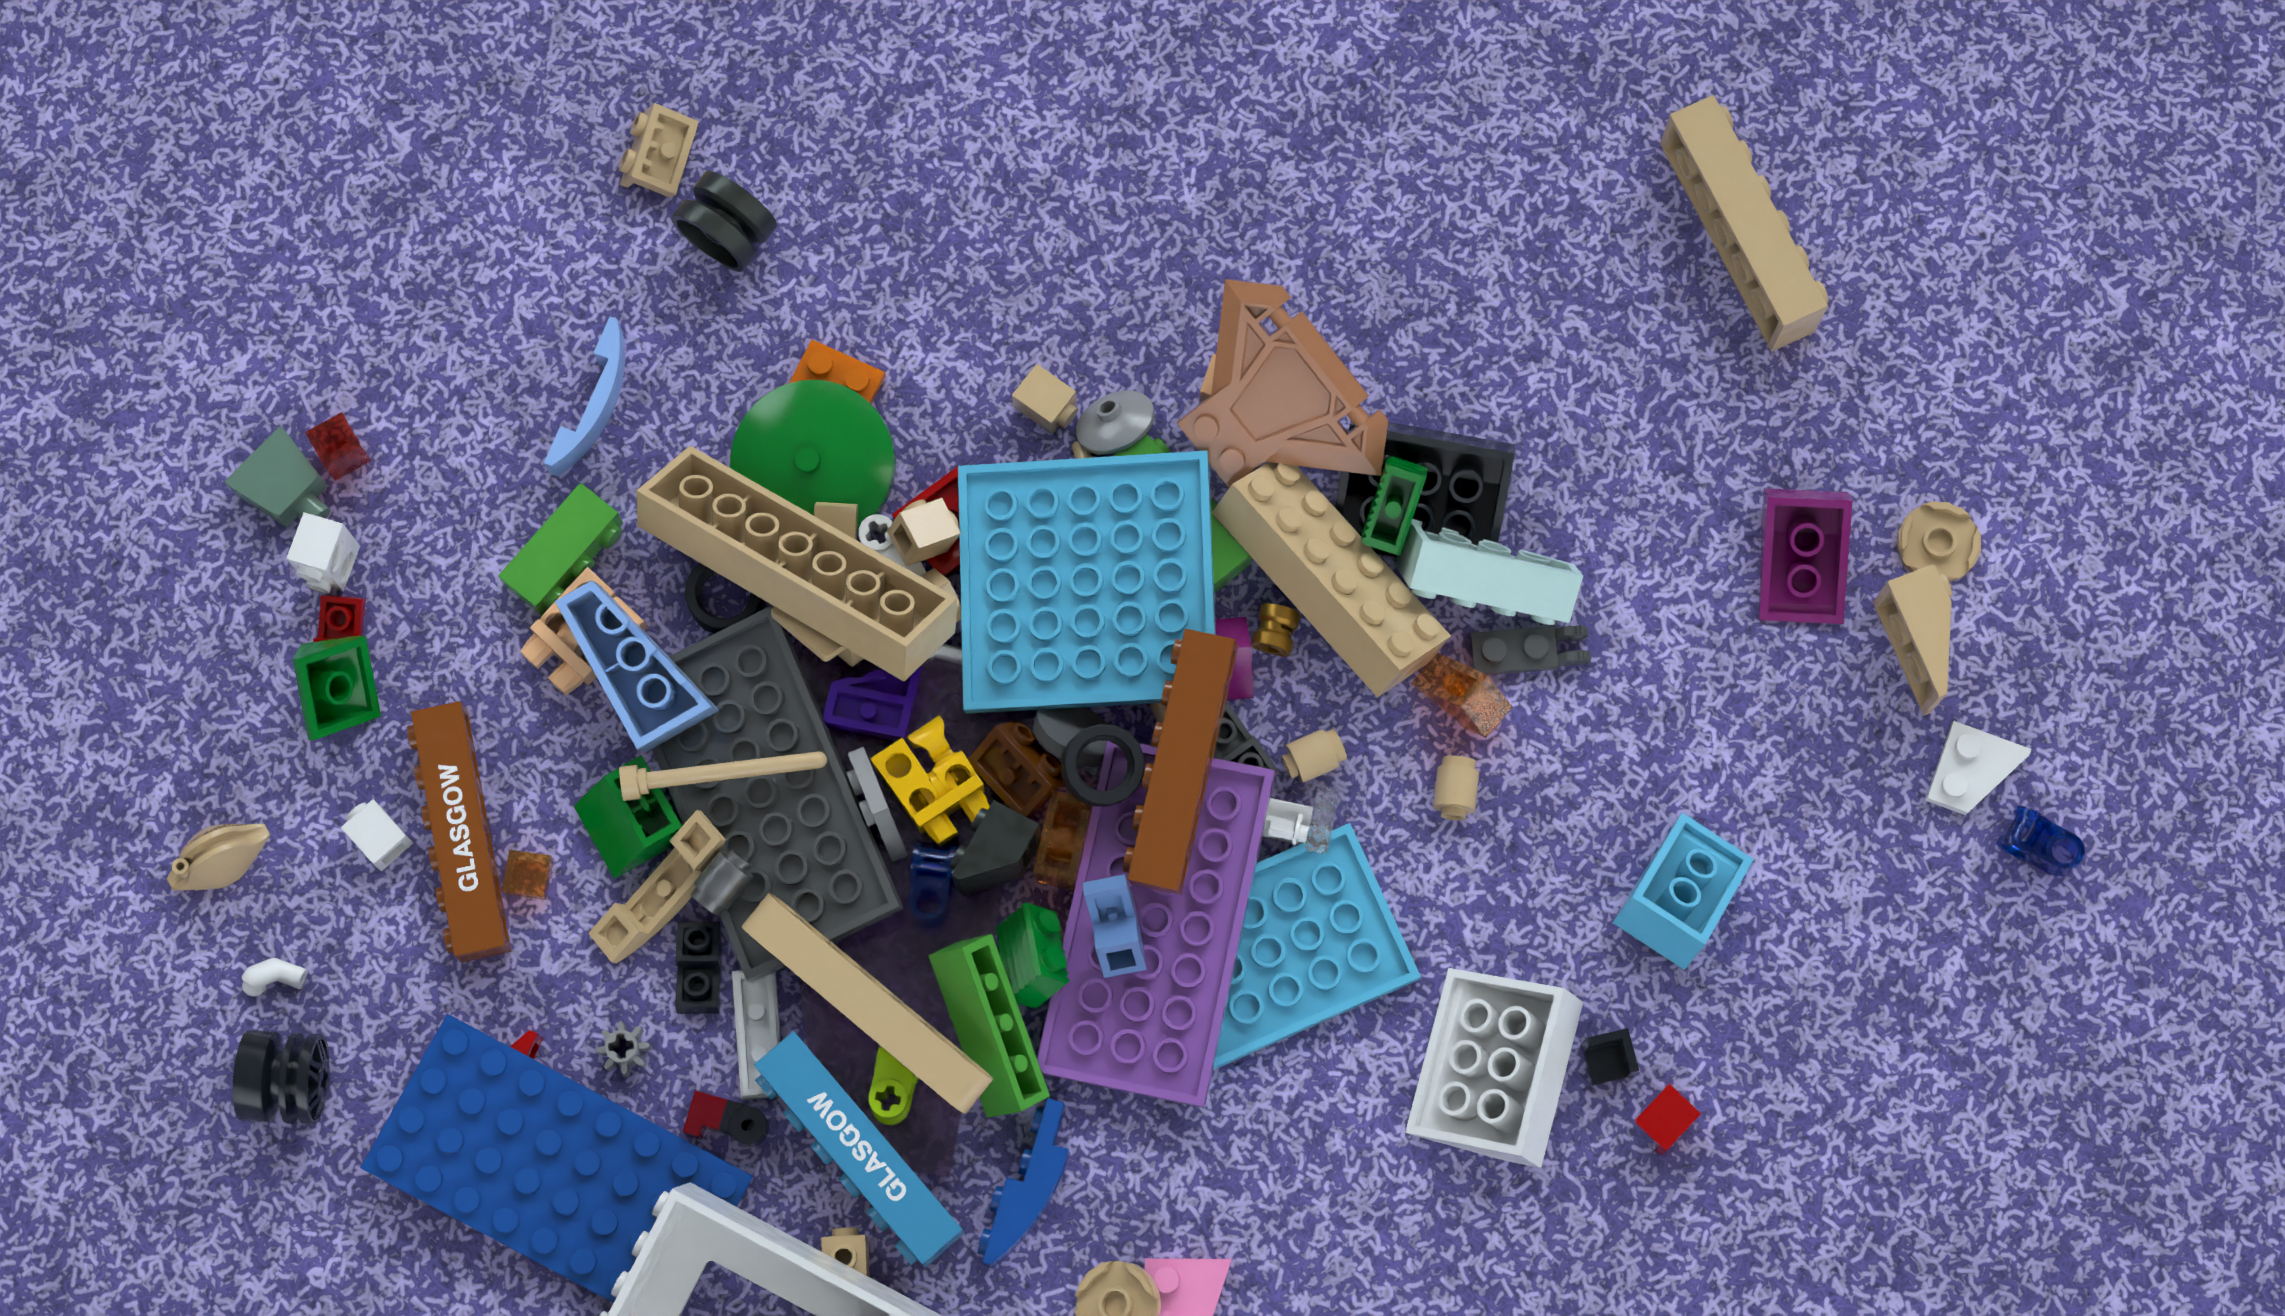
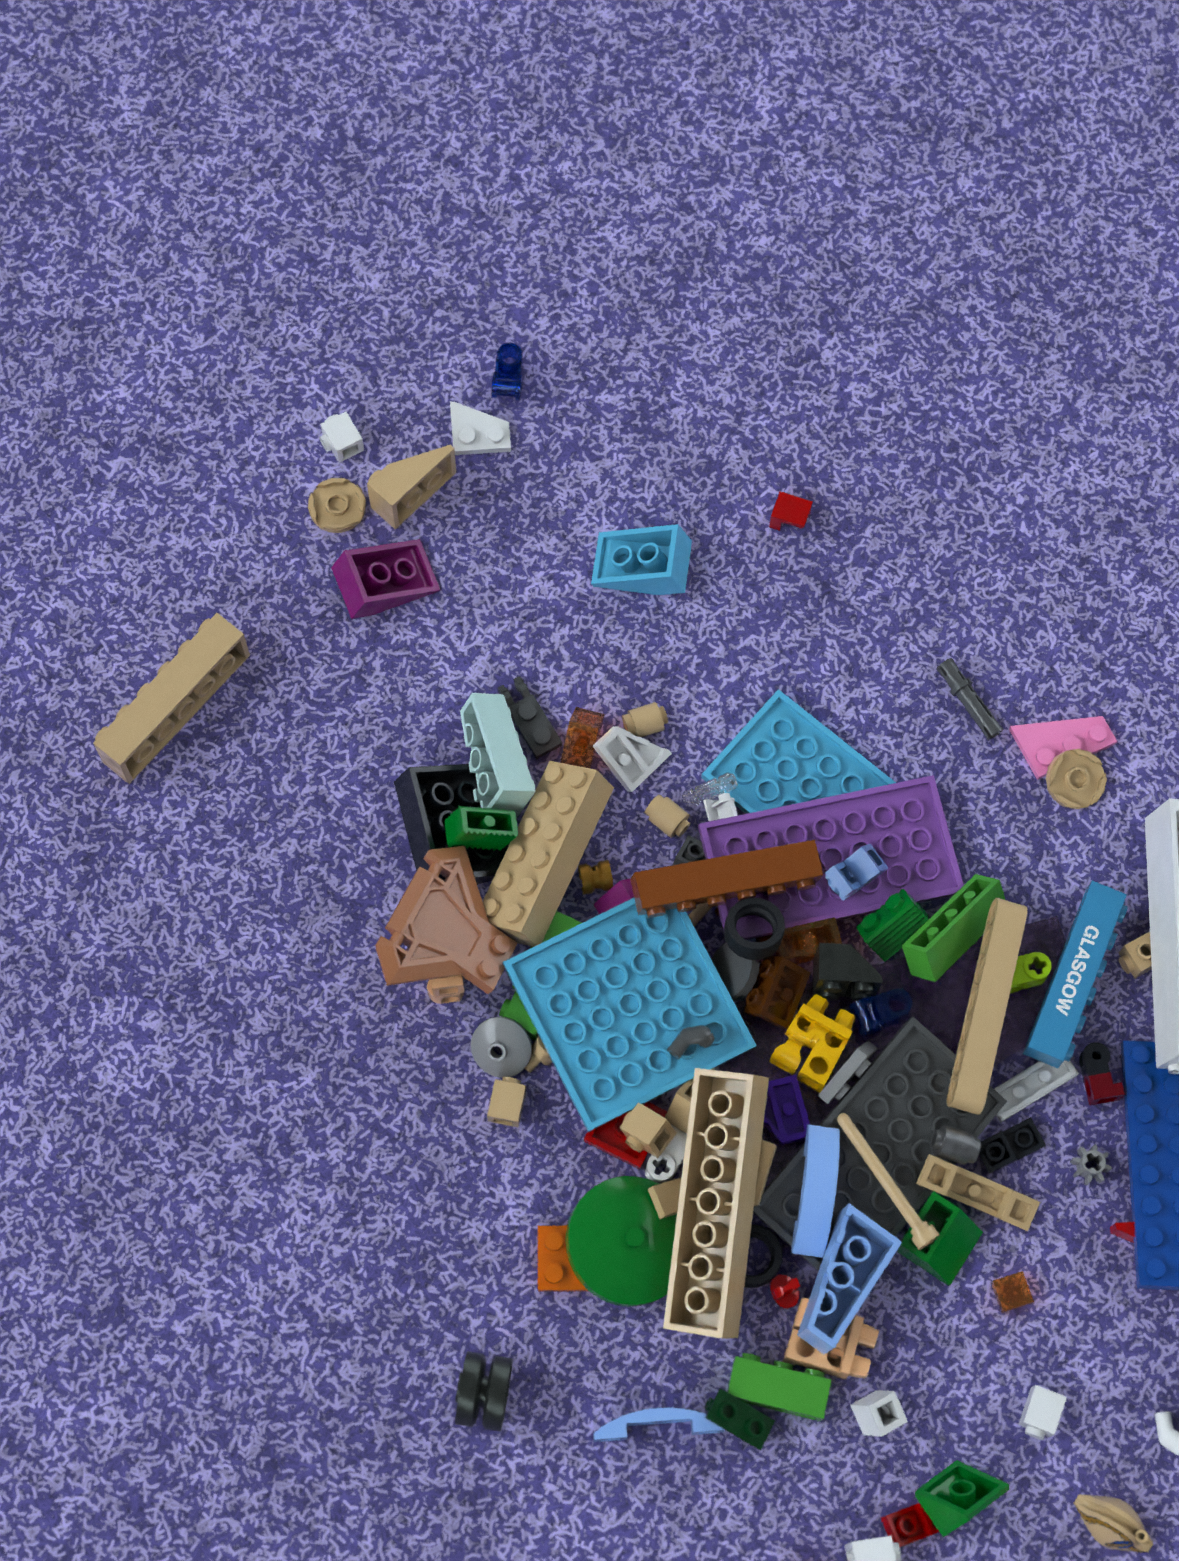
camera: 120 degrees left, 5 degrees down
(459, 831) = (1008, 1354): dark orange brick -> none
(472, 645) = (879, 1413): none -> white brick
(548, 483) = (739, 1419): none -> dark green hinge
(658, 150) = (445, 1479): tan bracket -> none
(664, 608) = (785, 1291): none -> red piece
(755, 690) = (817, 1191): none -> light blue slope
(1008, 631) = (691, 1036): none -> dark grey arm
(1023, 1203) = (1046, 862): blue slope -> none
(1294, 1225) = (969, 698): none -> dark grey pin
(1414, 744) = (629, 756): none -> white wing
(1495, 1066) = (810, 625): white slope -> none
(1610, 1057) = (767, 560): black panel -> none
(2035, 584) = (341, 437): none -> white brick

